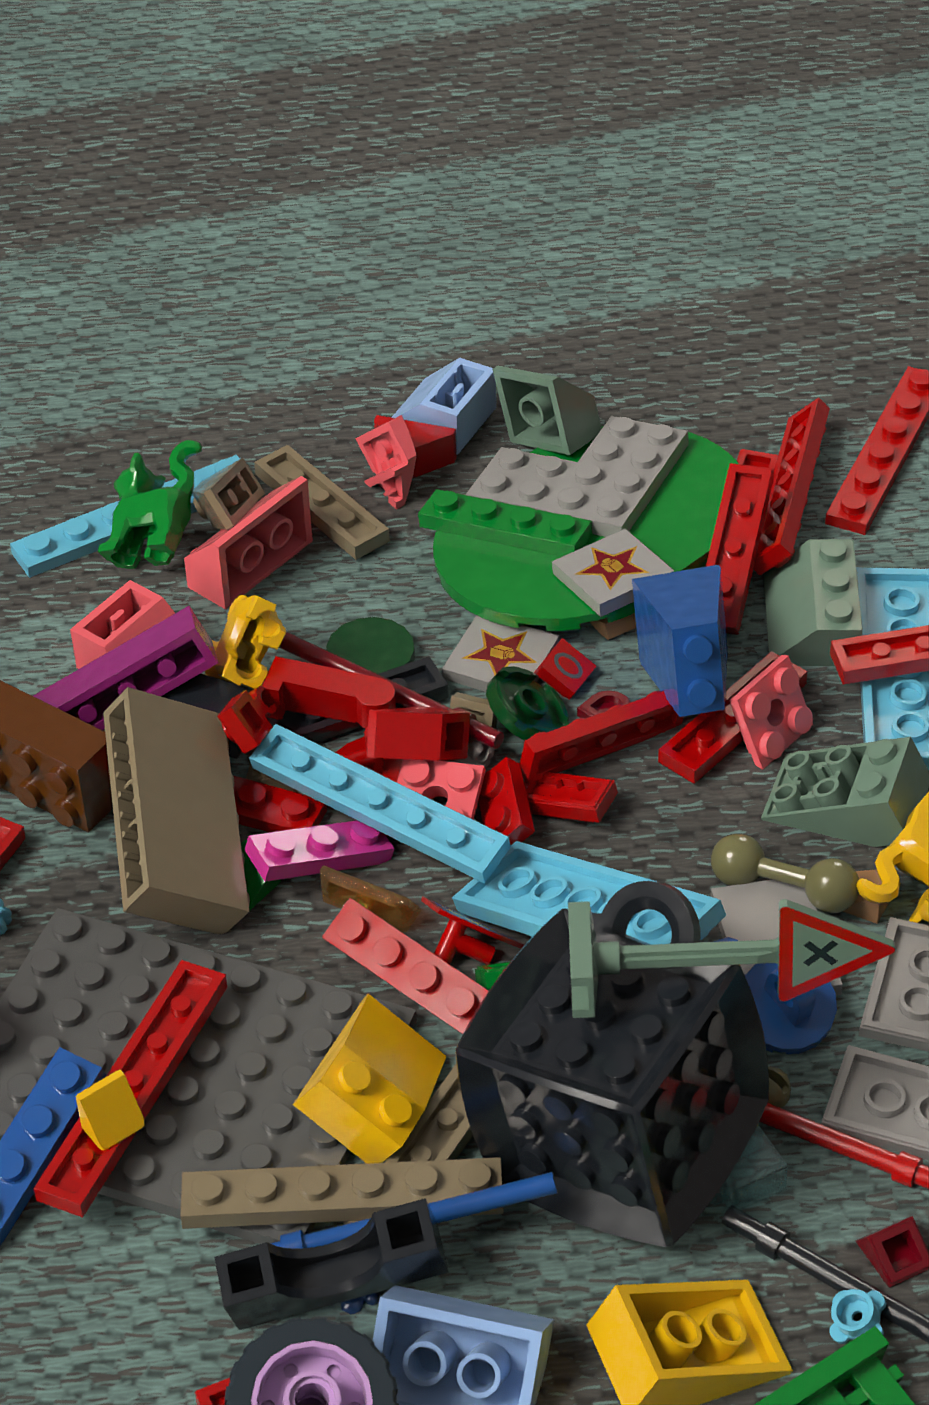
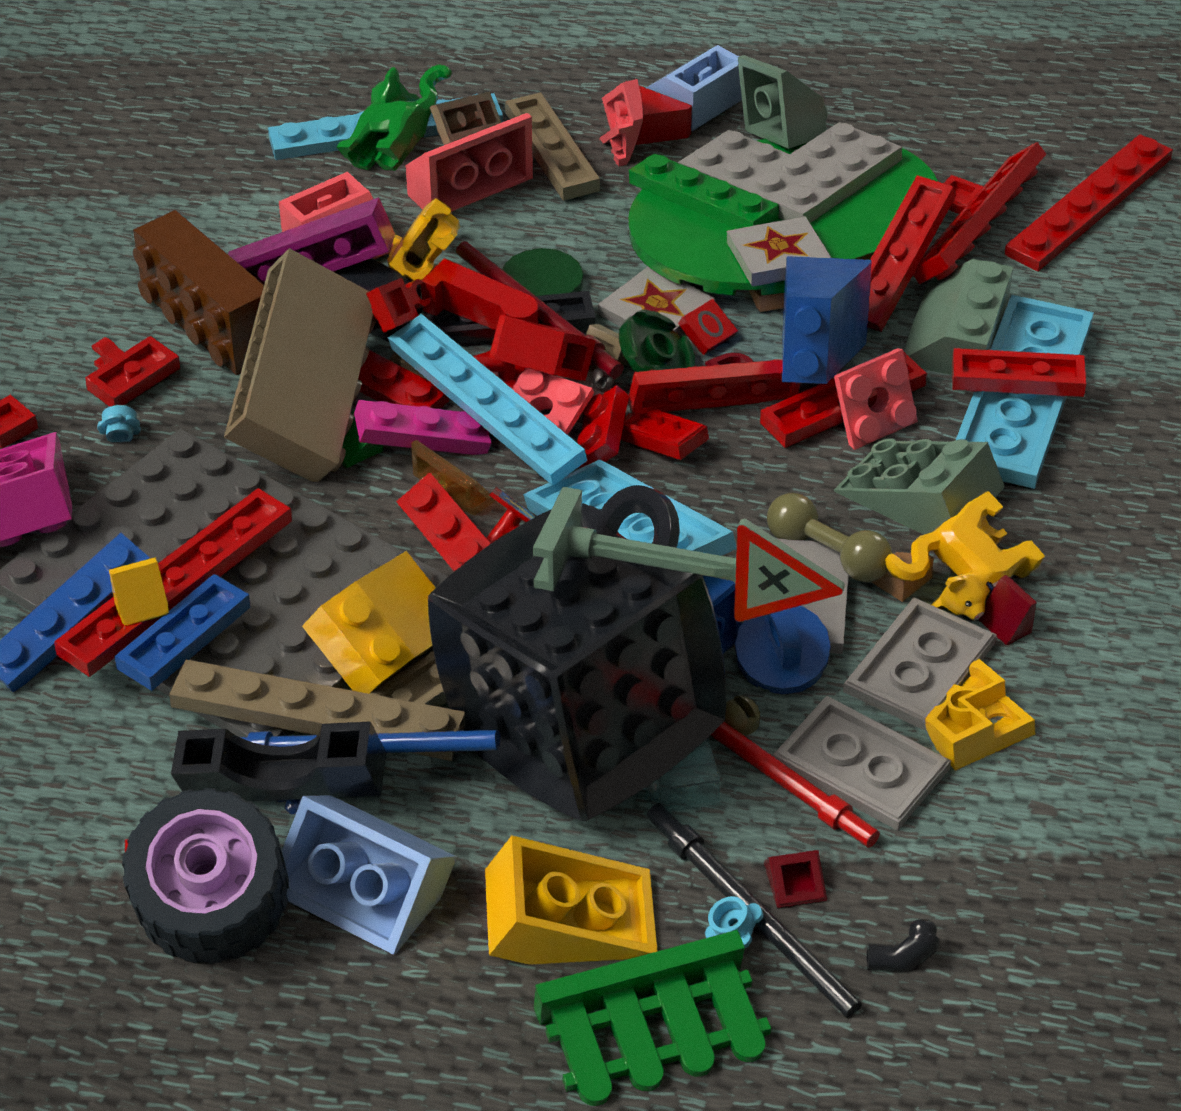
camera: 15 degrees right, 0 degrees up
(165, 1142) = (182, 632): none -> blue plate

